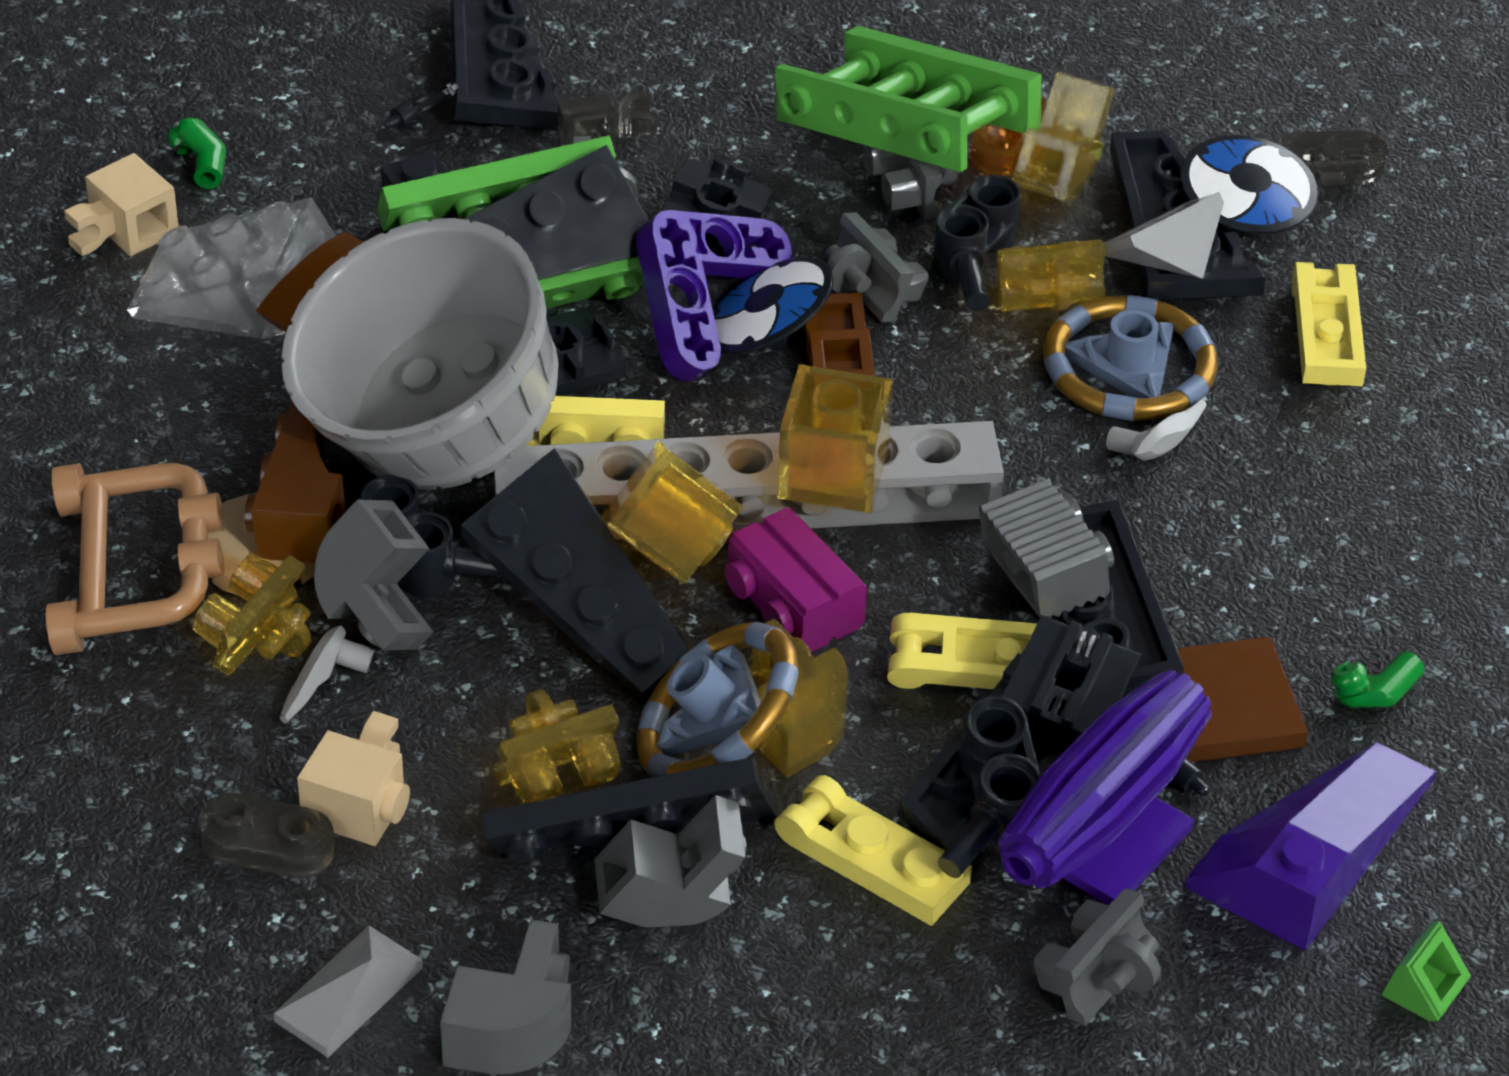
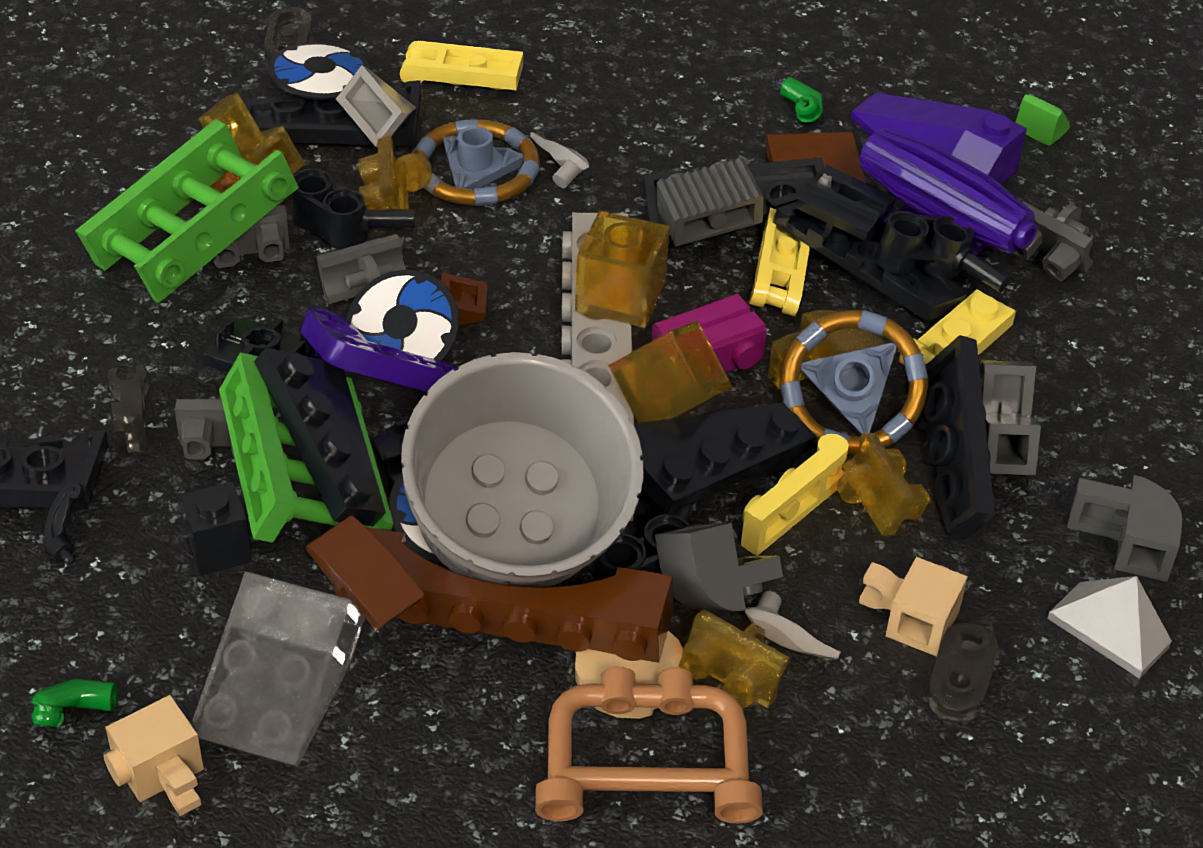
camera: 85 degrees left, 0 degrees up
(520, 662) = (794, 495): none -> light yellow plate

